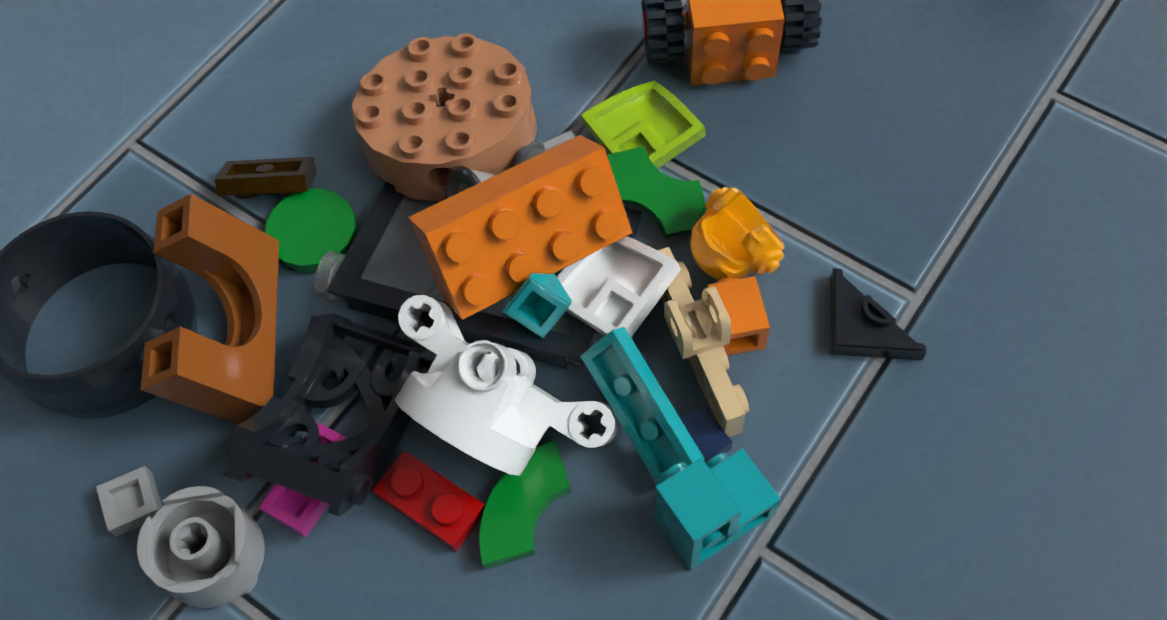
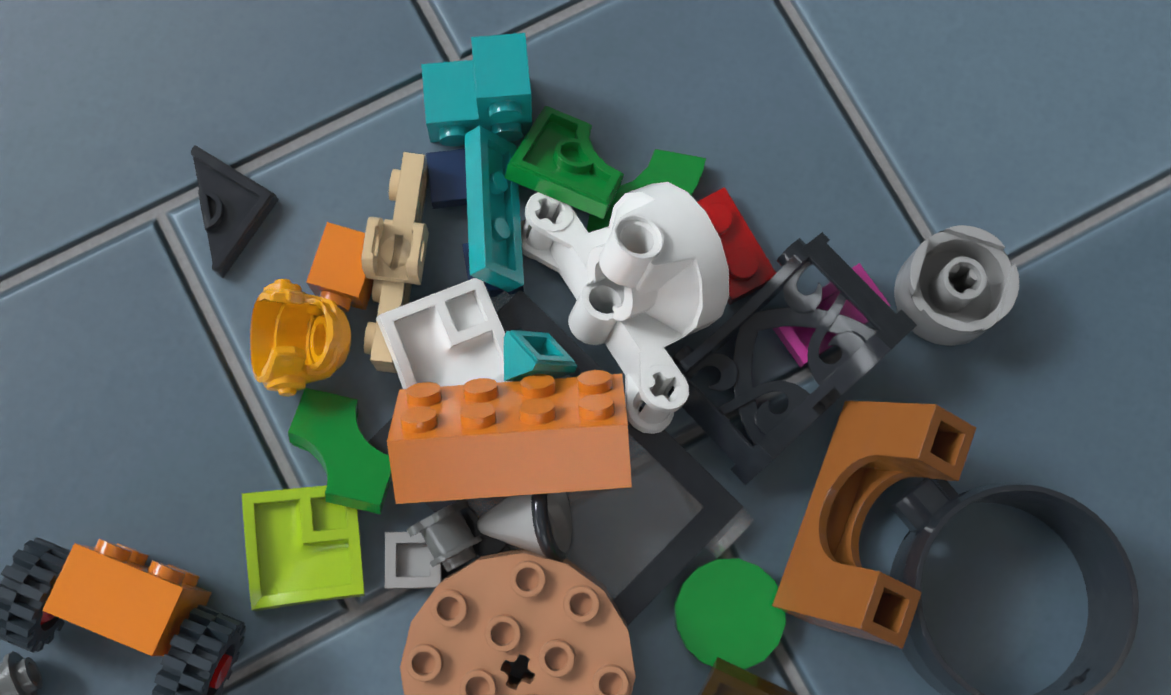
camera: 165 degrees left, 15 degrees up
(129, 500) = (1012, 388): light grey tile -> none
(607, 481) = (562, 164): none -> green tile

